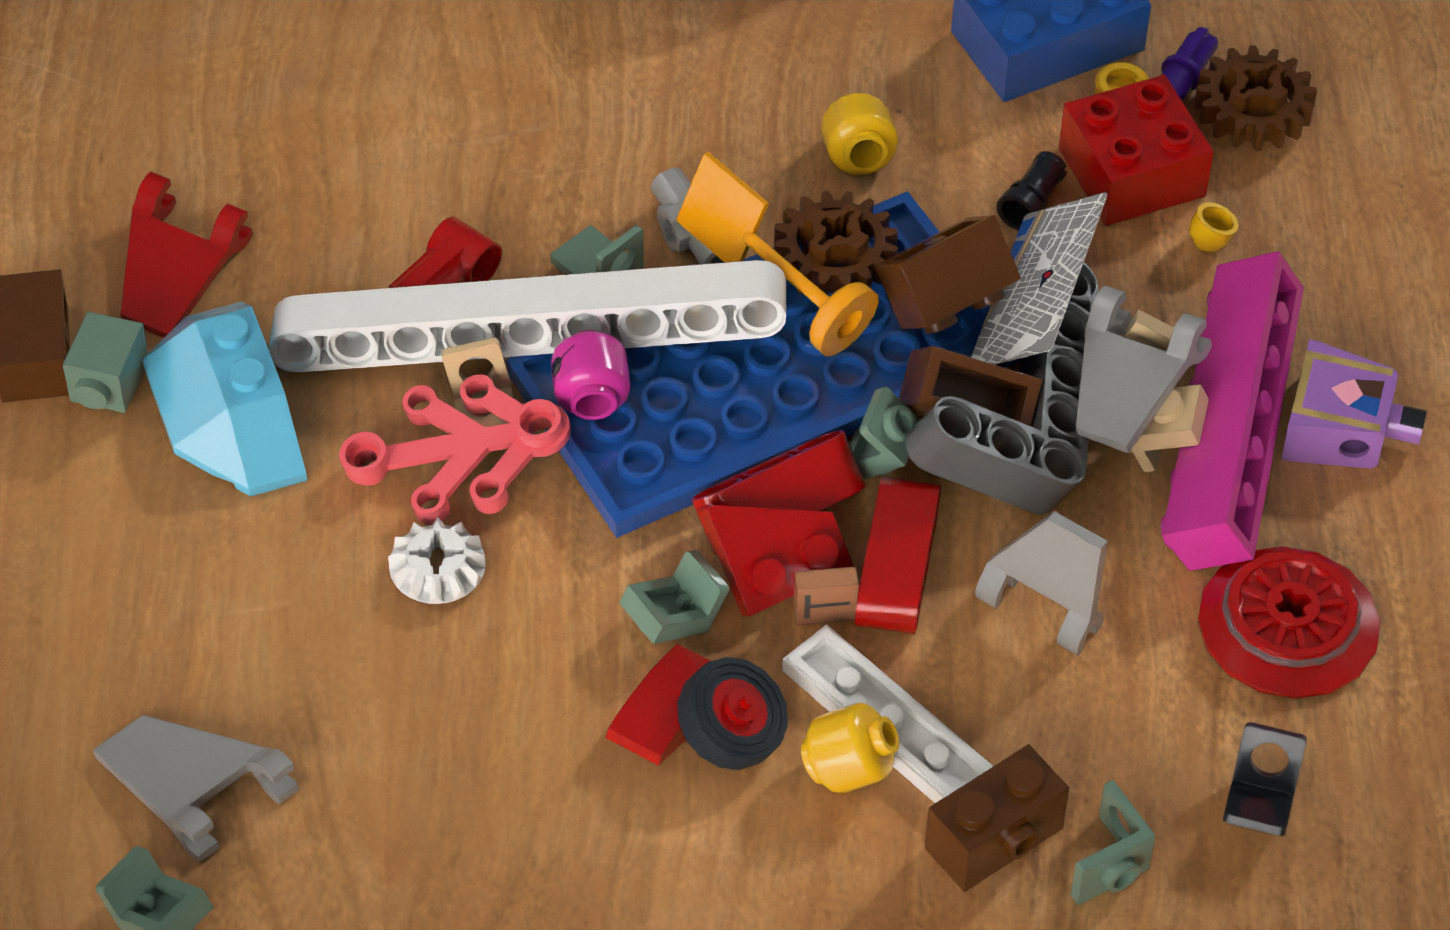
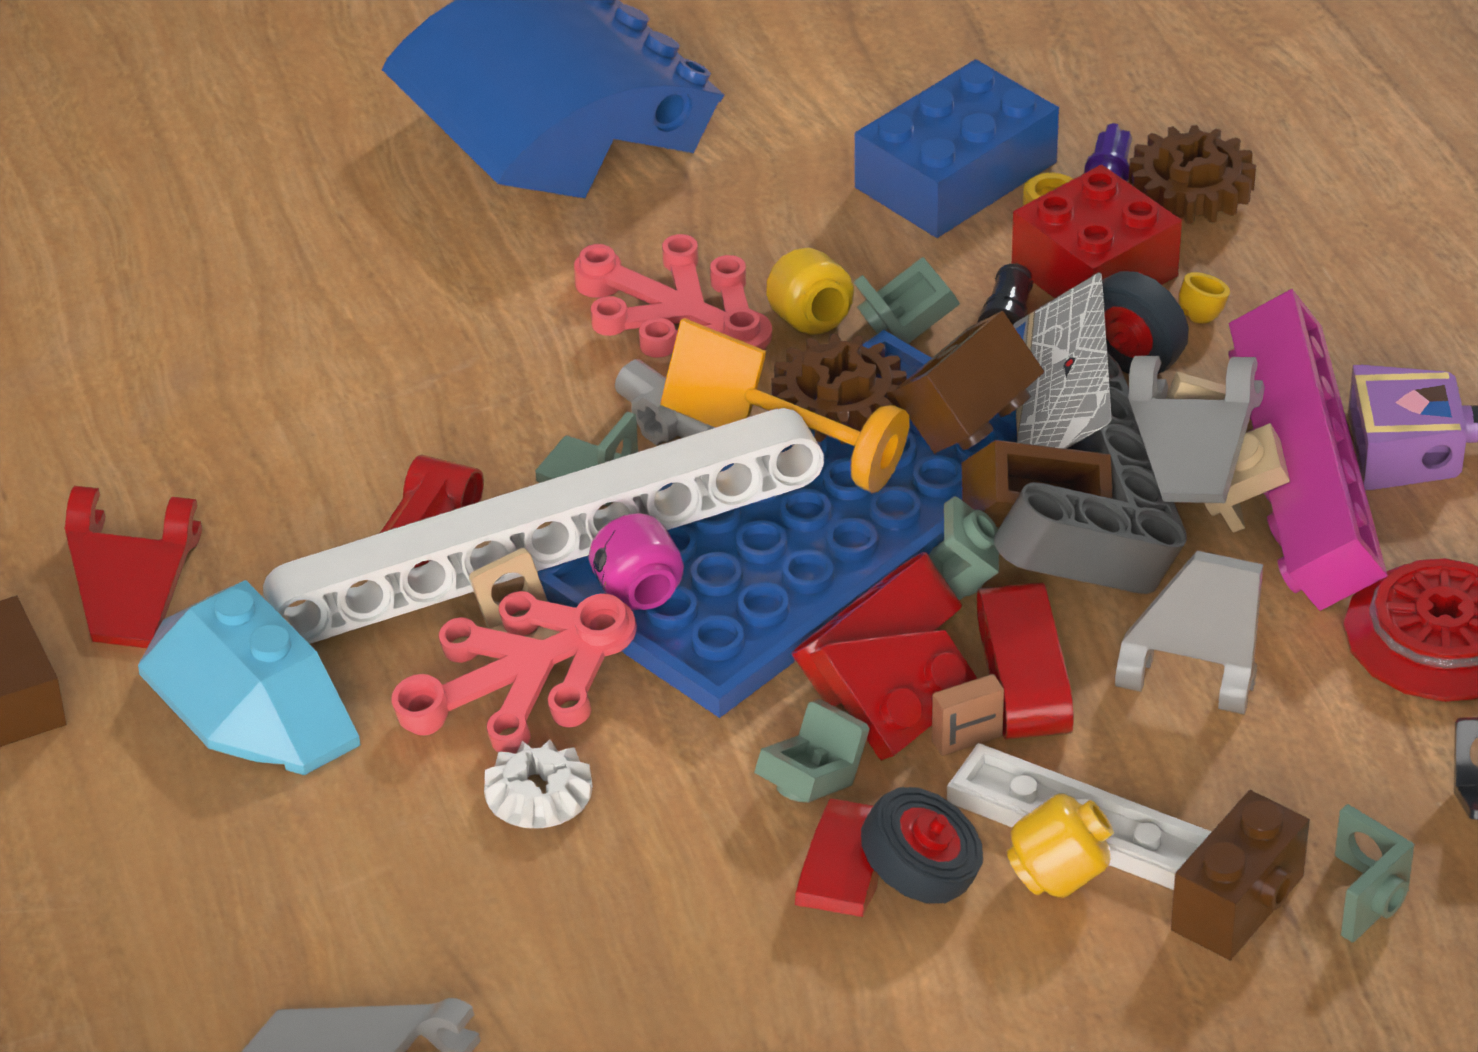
camera: 15 degrees left, 10 degrees down
(105, 362) = (100, 675): sand green brick -> none
(781, 157) = (600, 275): none -> coral plant
(941, 167) = (907, 302): none -> sand green bracket
(1133, 246) = (1142, 320): none -> black wheel

